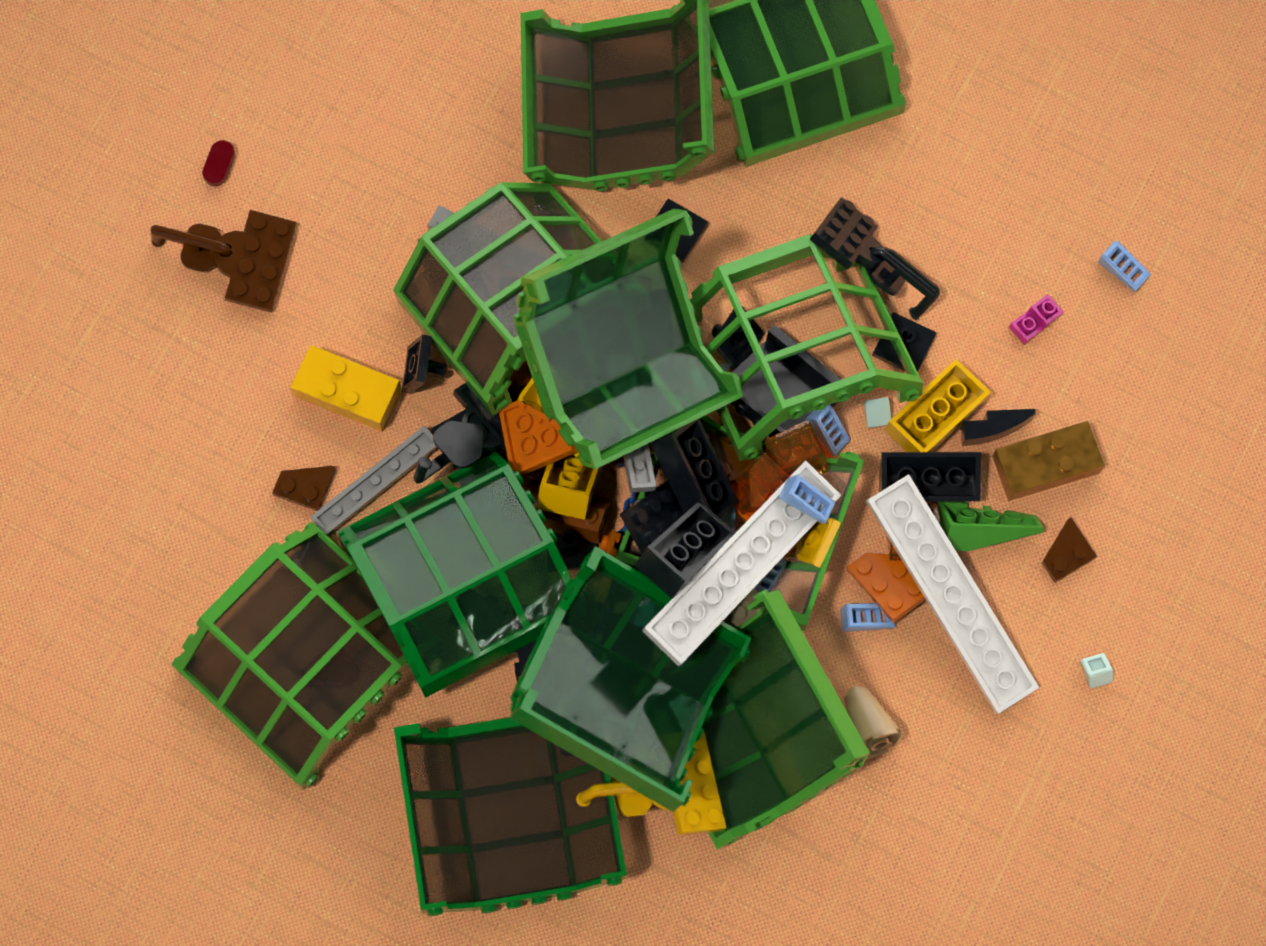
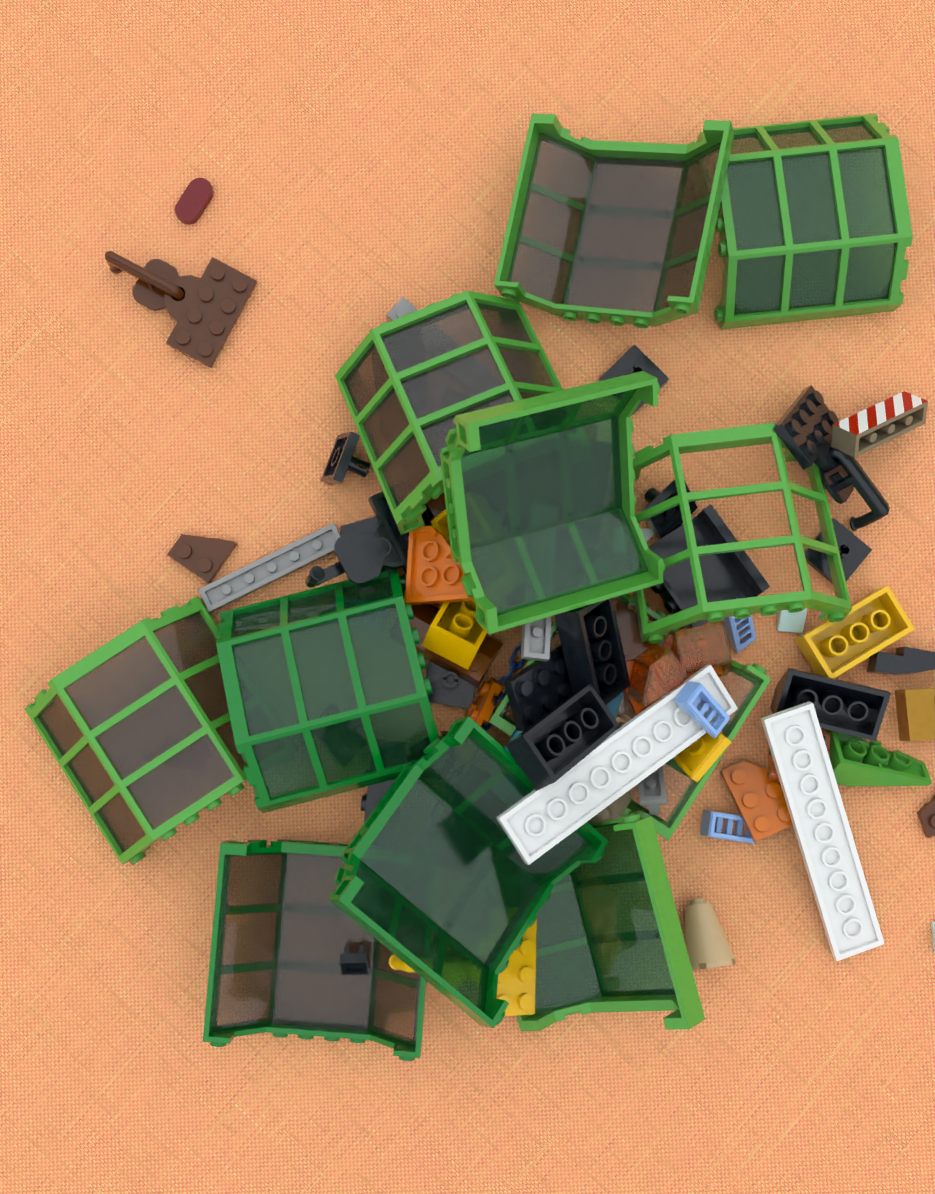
camera: 15 degrees right, 10 degrees up
(346, 388) = (264, 464): yellow brick -> none
(543, 820) = (354, 962): none -> black tile
(783, 582) = (653, 791): none -> light grey plate
(910, 215) = (879, 424): none -> brick

